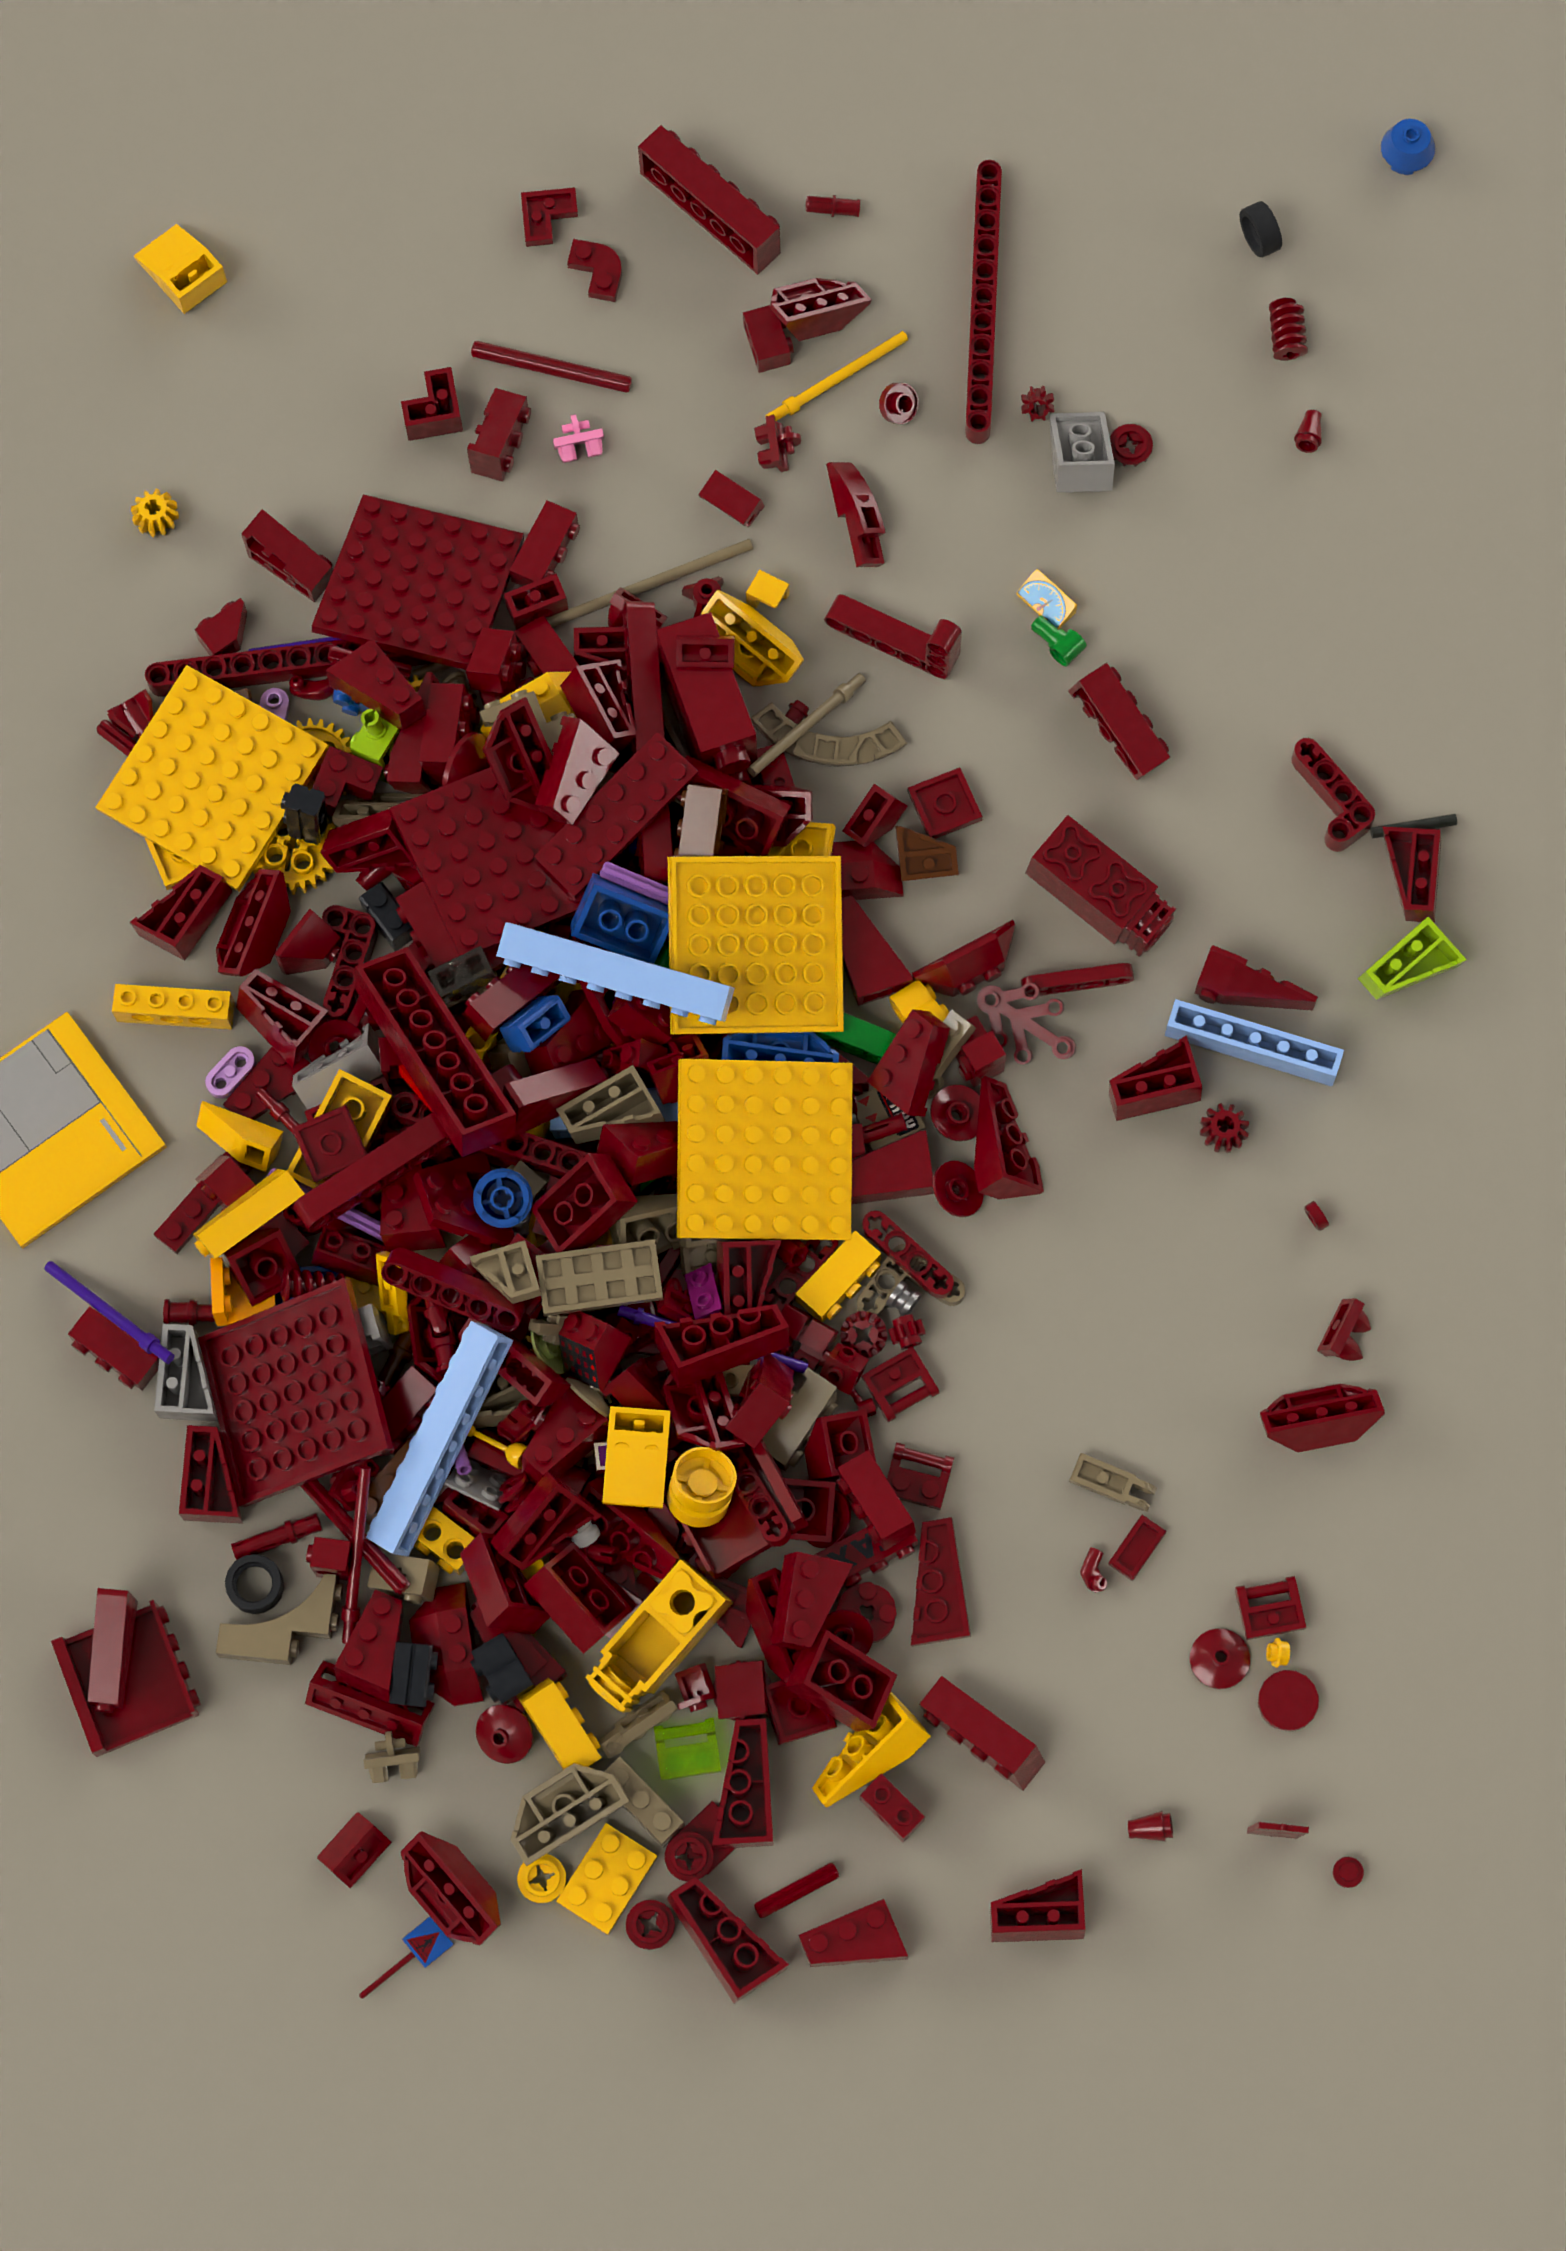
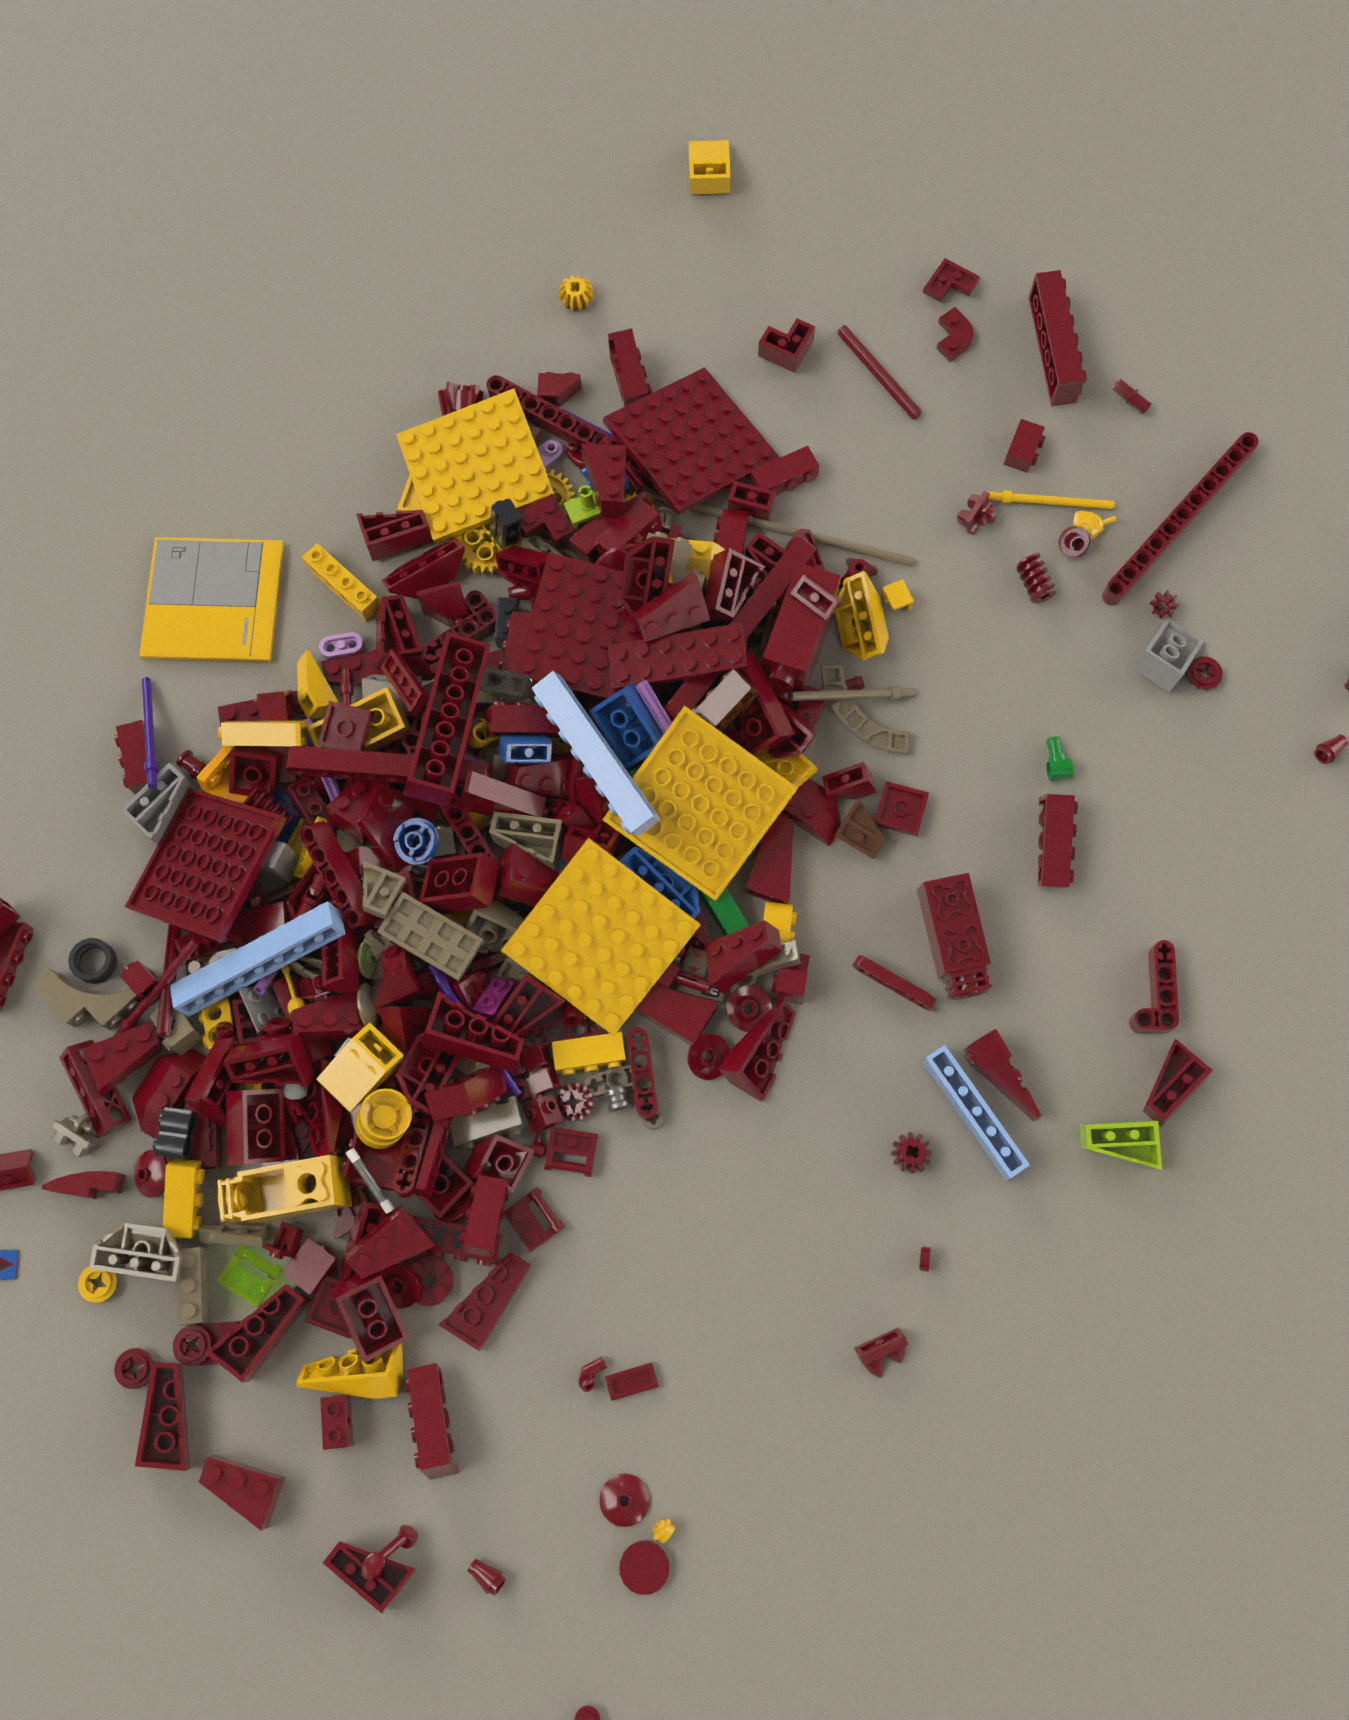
camera: 40 degrees right, 0 degrees up
(207, 1479) = (118, 875): dark red wedge -> none
(278, 1536) = (139, 946): dark red pin -> none
(349, 1051) = (404, 682): none -> dark red plate
(412, 1674) = (125, 1091): black brick -> none
(445, 1796) = (87, 1183): none -> dark red slope
(450, 1889) = (38, 1244): dark red wedge -> none
(465, 1540) = (225, 1034): none -> dark red hinge
(496, 661) = (694, 517): dark red brick -> none
(499, 434) = (812, 388): dark red wedge -> none
(566, 444) = (849, 422): bright pink hips -> none
(606, 1879) = (135, 1316): yellow plate -> none
(731, 498) = (922, 526): dark red hinge -> none
(737, 1555) = (370, 1180): none -> flat silver bar
(796, 1890) = (238, 1423): dark red axle -> none
(818, 306) = (1070, 447): dark red wedge -> none
(857, 504) = (995, 591): dark red slope -> none
(889, 471) = (1034, 579): none -> dark red piece
(897, 370) = (1091, 522): none -> yellow piece
(907, 1331) = (601, 1121): dark red gear -> none
(927, 652) = (970, 707): dark red beam -> none
(969, 964) = (834, 920): dark red wedge -> none
(1022, 1020) = (837, 981): dark red plant -> none
(1042, 1888) = (374, 1562): none -> dark red bar
(1047, 599) = (1071, 730): slope -> none
(1110, 1481) = (648, 1323): dark tan hinge -> none
(1157, 1084) = (890, 1089): dark red wedge -> none
(1273, 1617) = (678, 1503): dark red plate -> none
(1277, 1830) = (562, 1653): dark red piece -> none
(1322, 1416) = (819, 1395): dark red wedge -> none
(1428, 823) = (1203, 1056): pearl dark grey bar -> none

